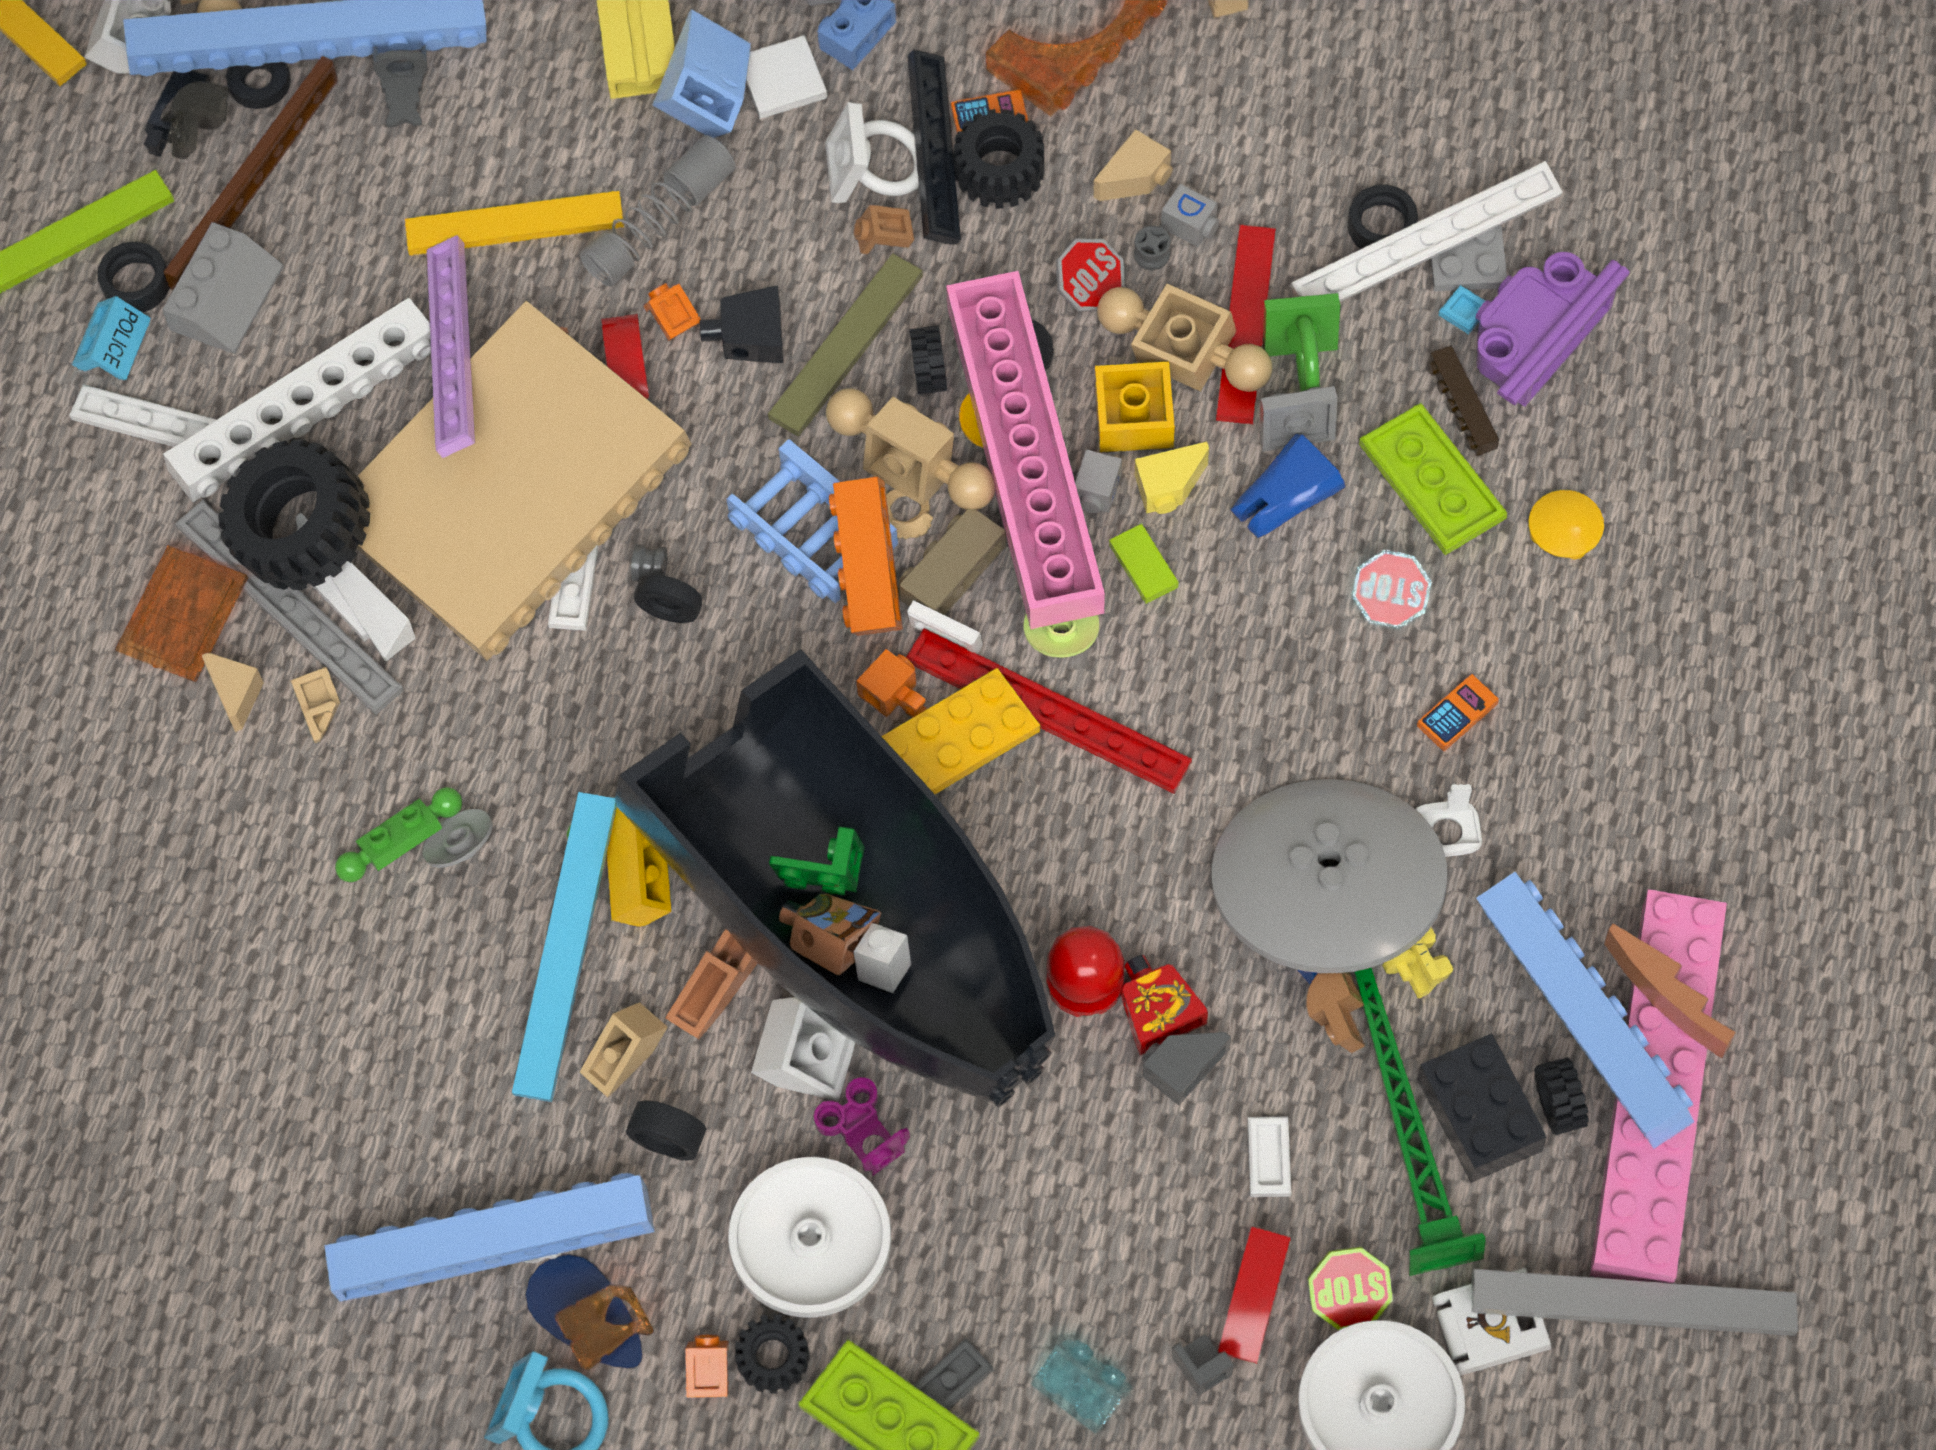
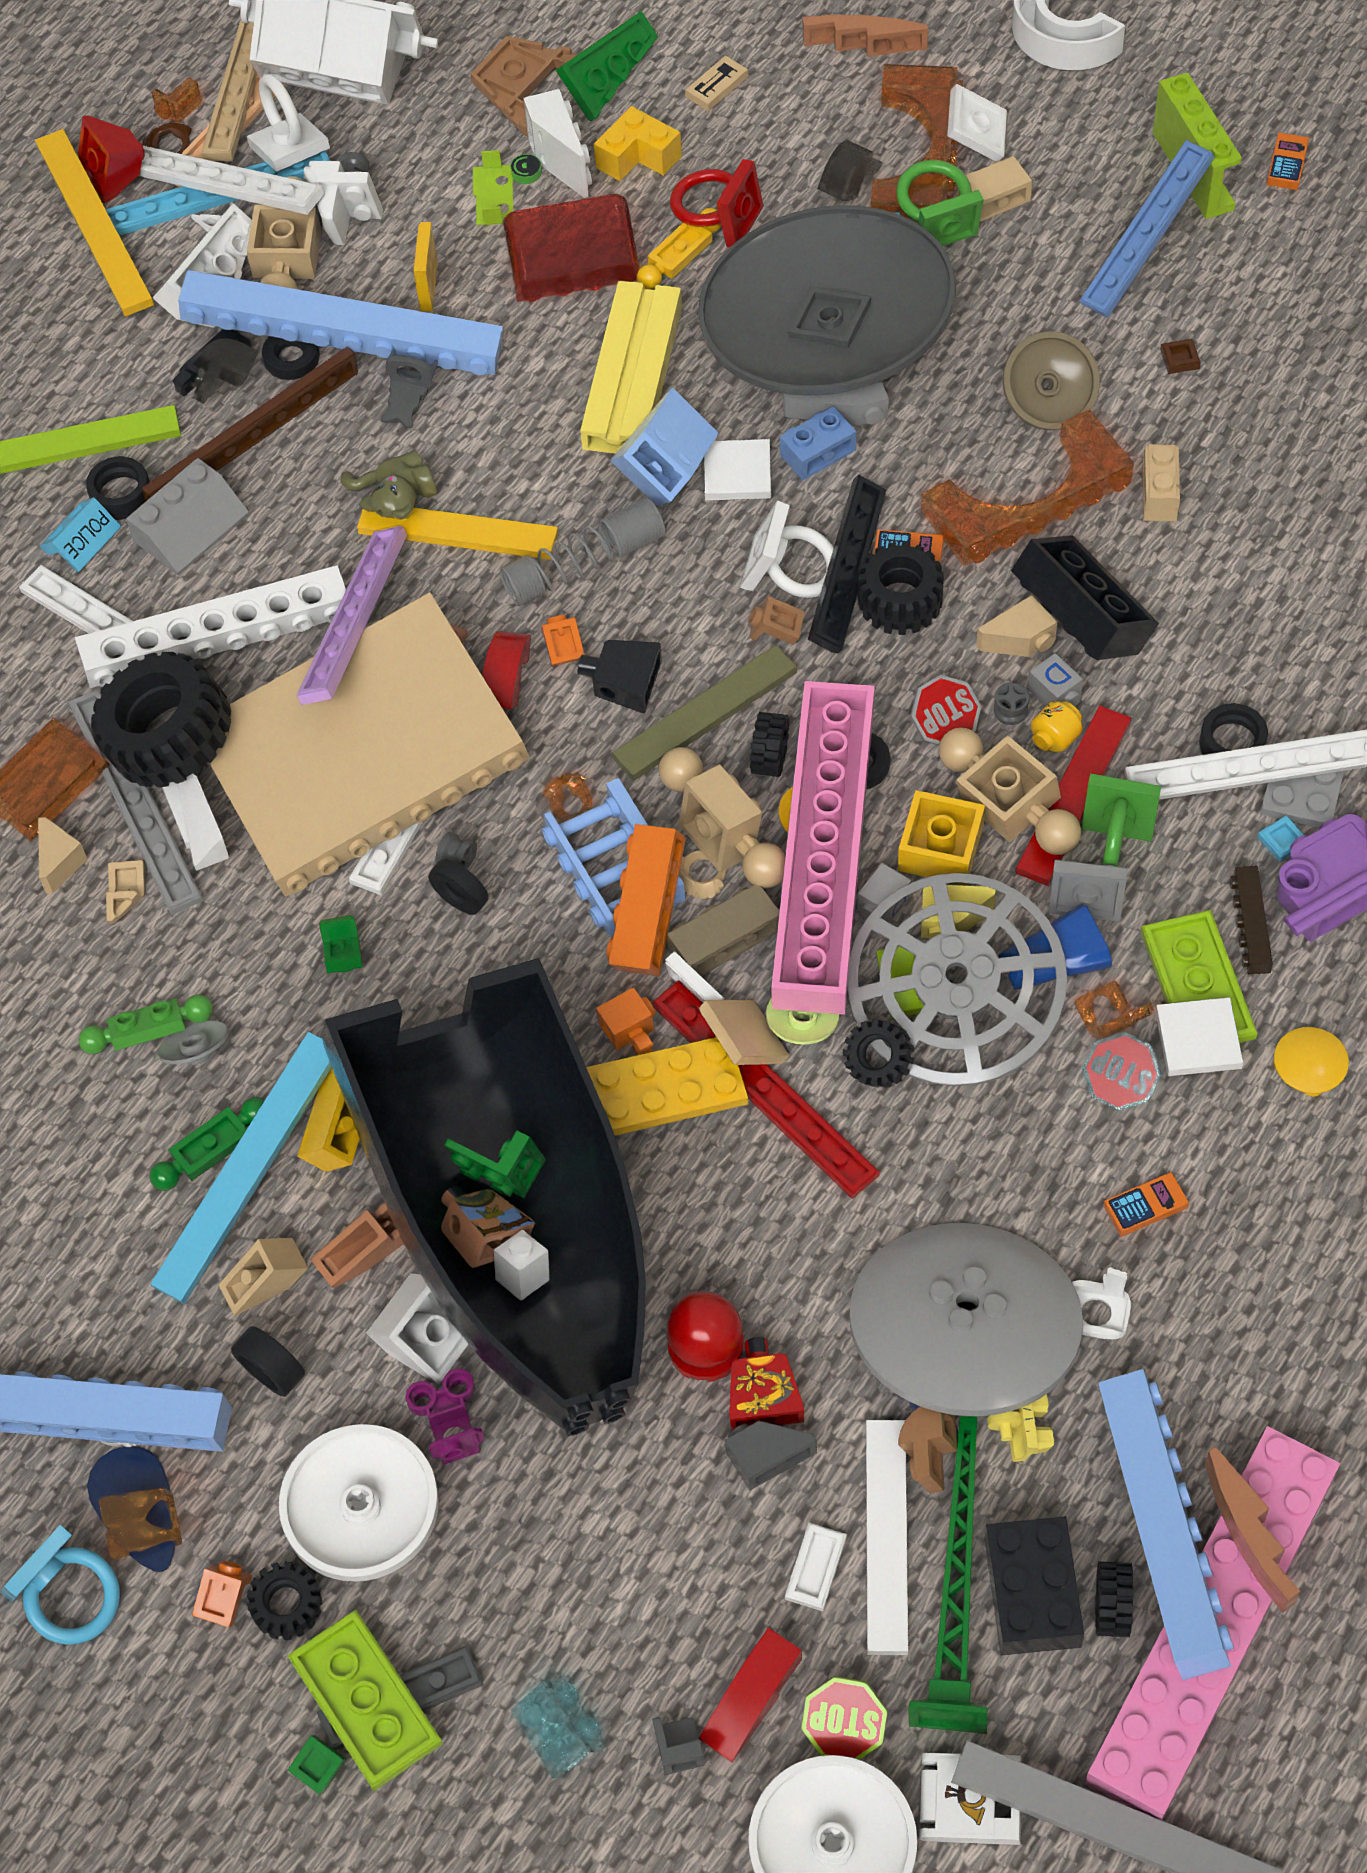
camera: 20 degrees right, 5 degrees down
(439, 194) = (399, 483): none -> olive animal
(513, 936) = (205, 1146): none -> green plate
(568, 693) = (341, 944): none -> green bracket
(742, 455) = (553, 792): none -> clear orange piece
(1011, 661) = (743, 1032): none -> tan tile
(1128, 637) = (900, 1053): none -> black tyre
(1189, 117) = (1084, 597): none -> black brick
(1206, 259) = (1056, 726): none -> yellow head
(1208, 567) = (974, 993): none -> light grey dish
(1326, 1108) = (886, 1539): none -> white tile
(1379, 534) = (1115, 995): none -> clear orange piece
(1454, 533) = (1199, 1036): none -> white tile

